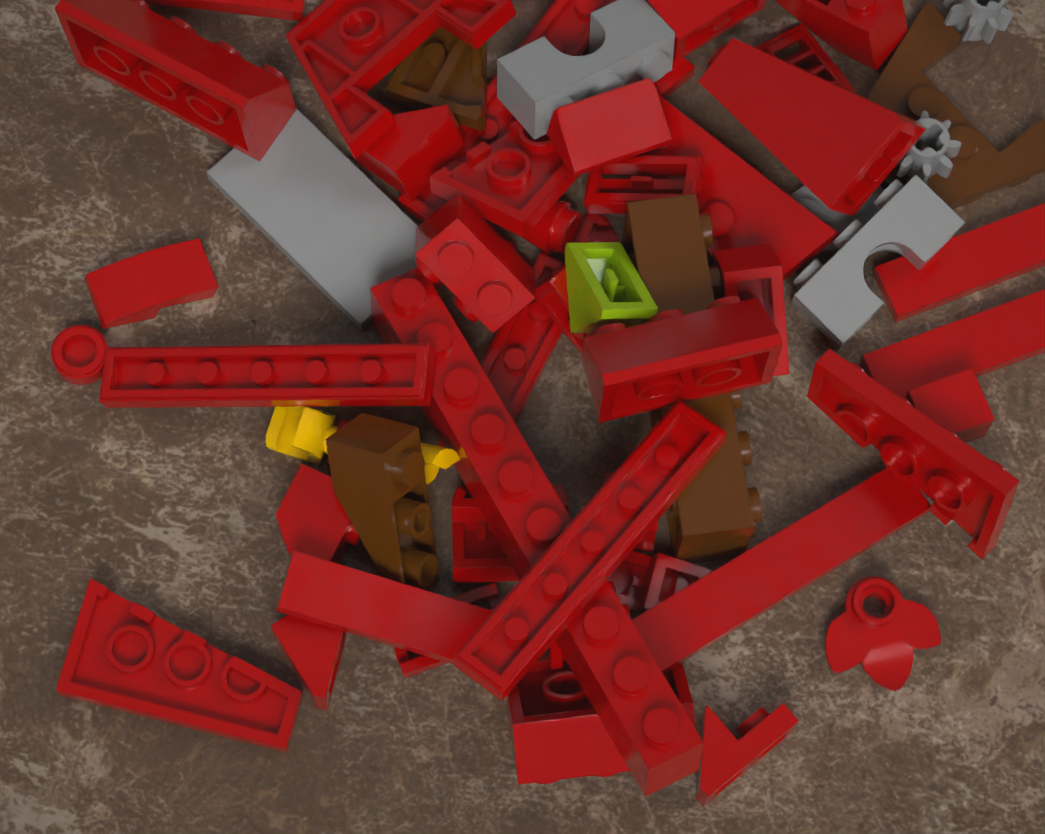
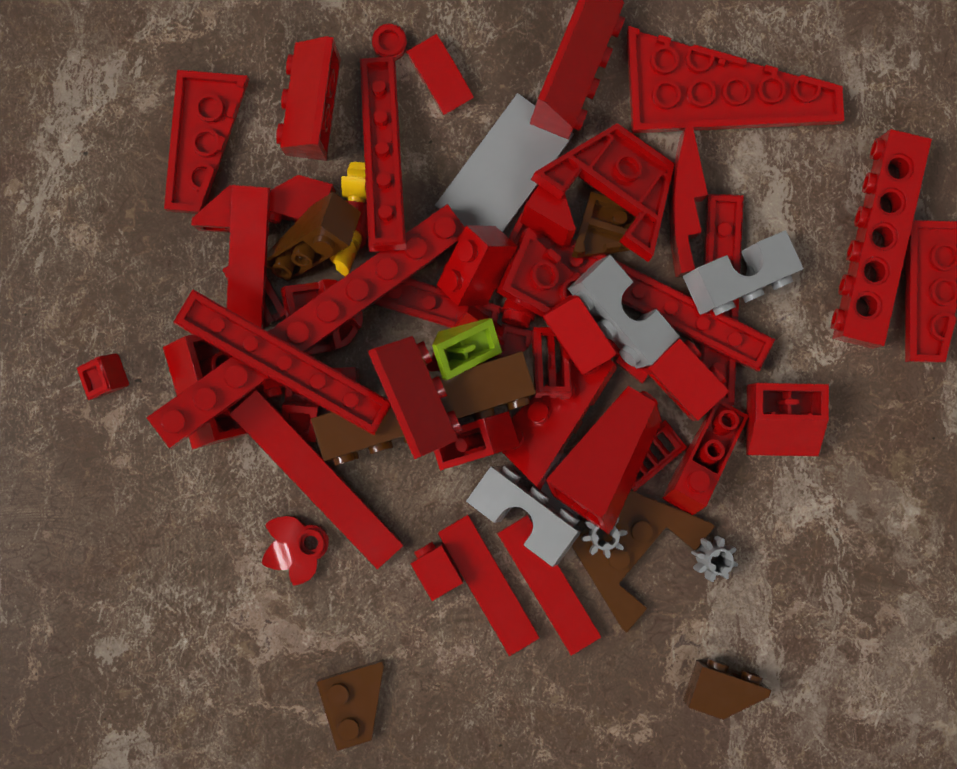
camera: 80 degrees right, 15 degrees up
(153, 479) = (309, 99): none -> red slope
(726, 757) = (200, 467): red slope -> none
(917, 449) = (402, 553): red wing -> none

